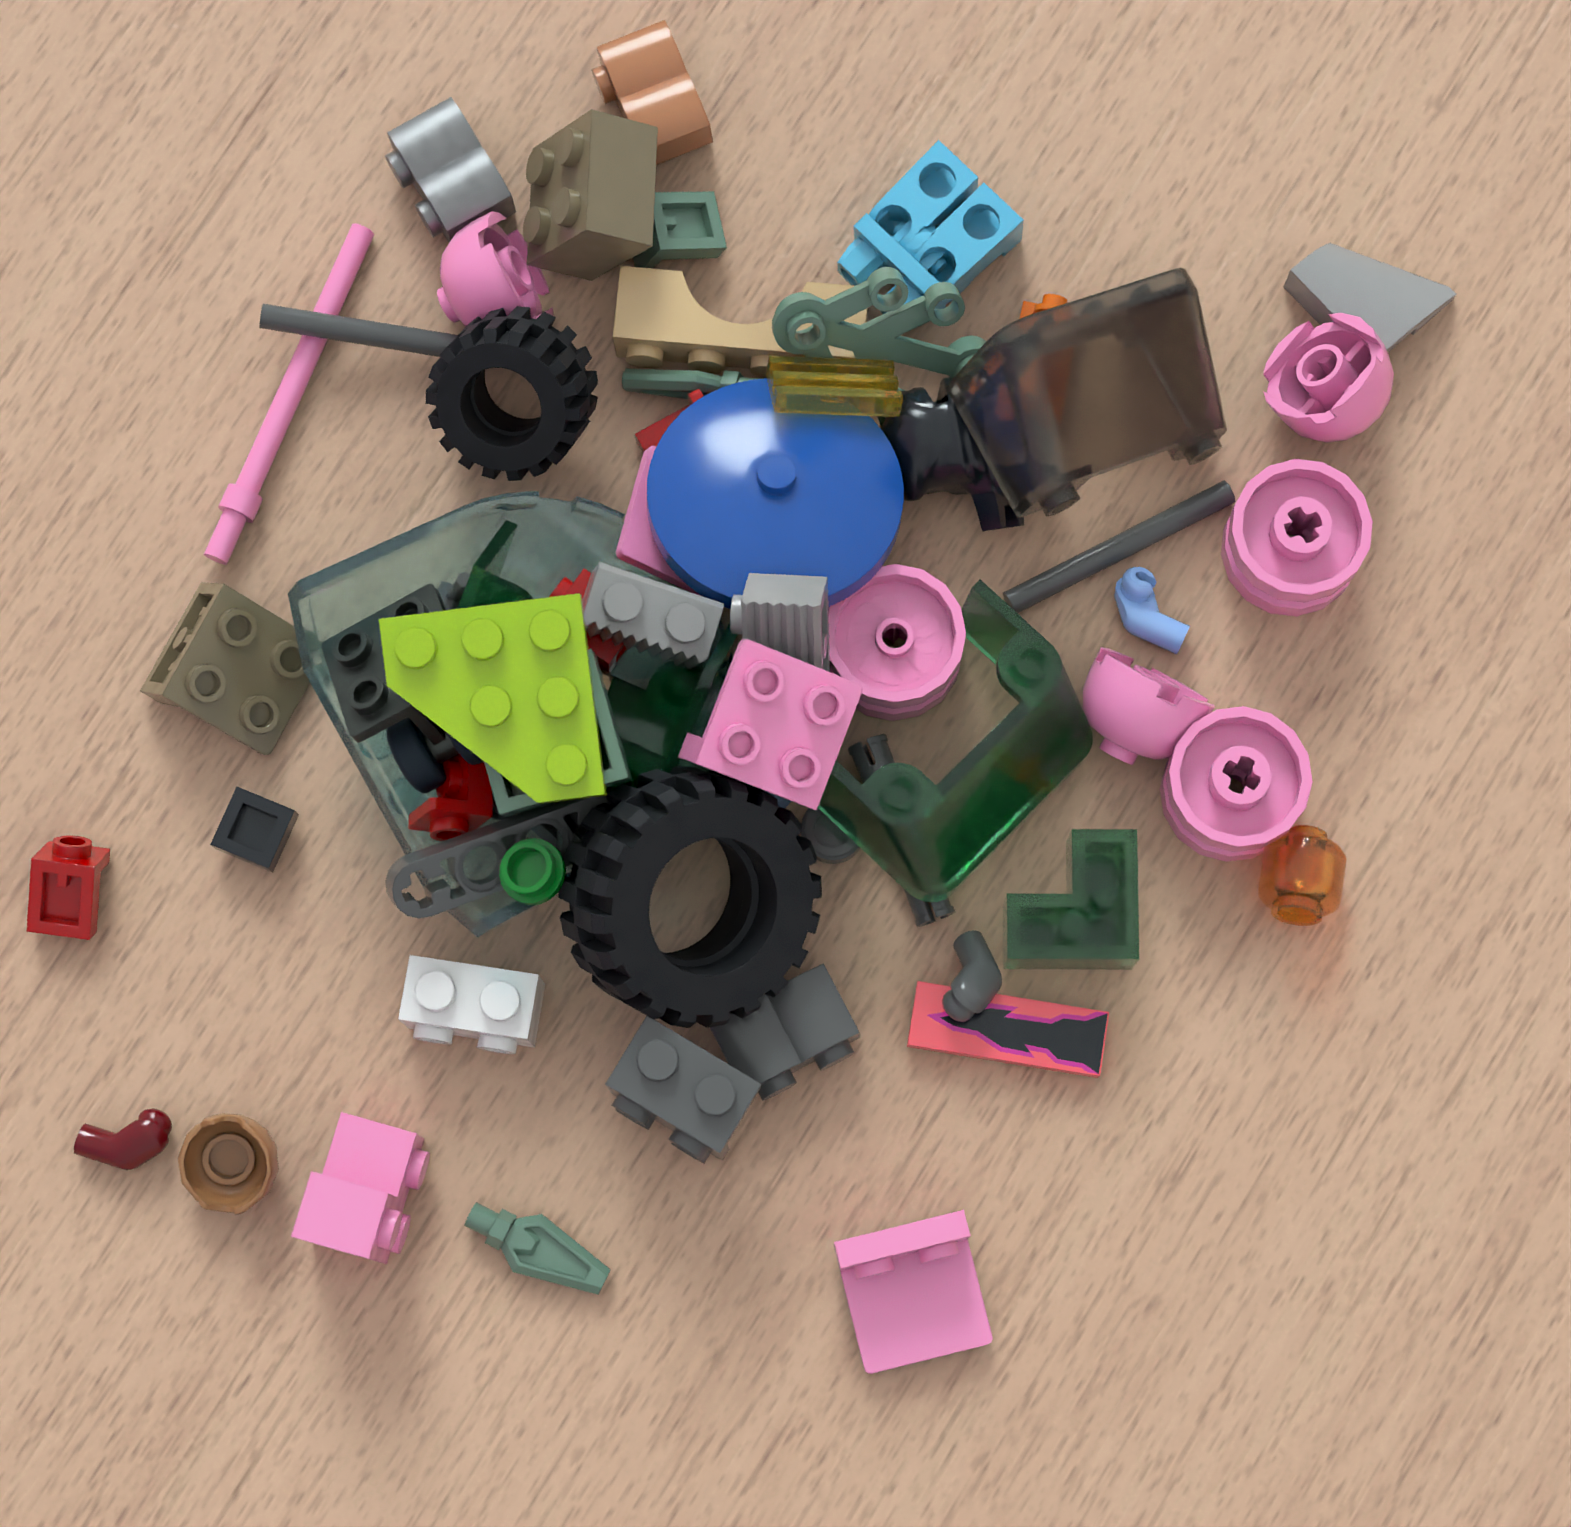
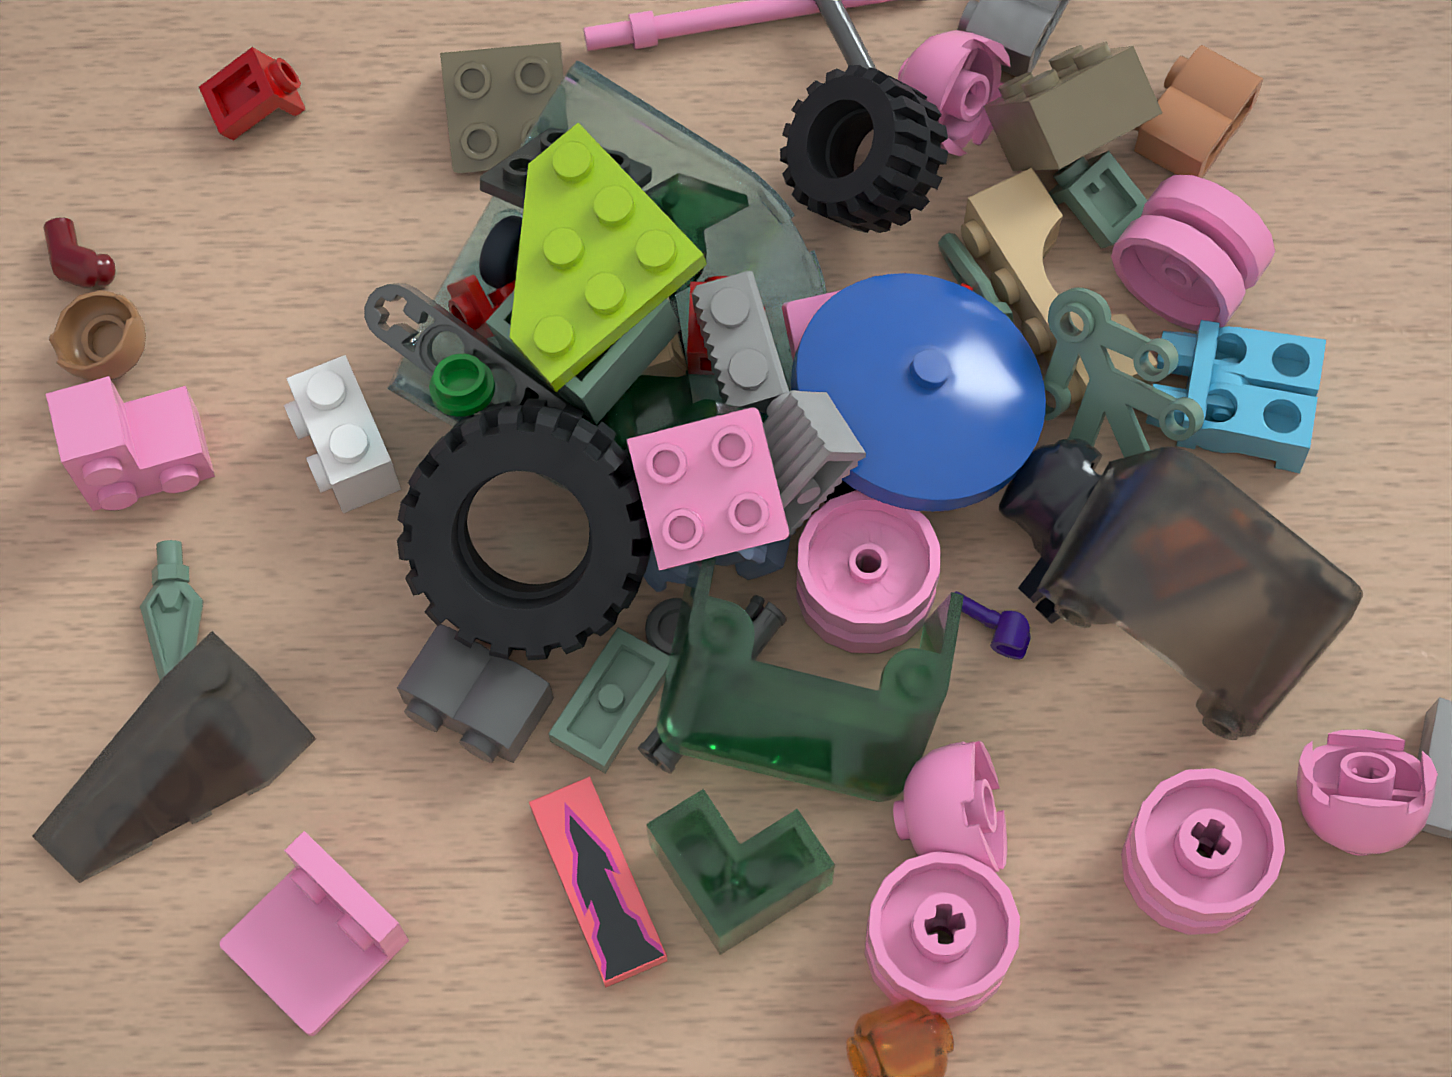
camera: 55 degrees right, 10 degrees down
(254, 829) = (384, 195): black plate -> none
(680, 1304) = (183, 752): none -> clear smoke wedge
(682, 1089) = (358, 625): dark grey bracket -> none
(791, 190) = (1193, 252): none -> bright pink wheel
(833, 386) = (1045, 377): clear yellow tile -> none
(864, 923) = (610, 700): none -> sand green plate
(976, 982) = (617, 822): dark grey arm -> none
(1010, 560) = (1010, 628): none -> dark purple hand
(1119, 547) = (1084, 711): dark grey bar -> none
(1141, 613) = (1043, 767): light blue arm -> none

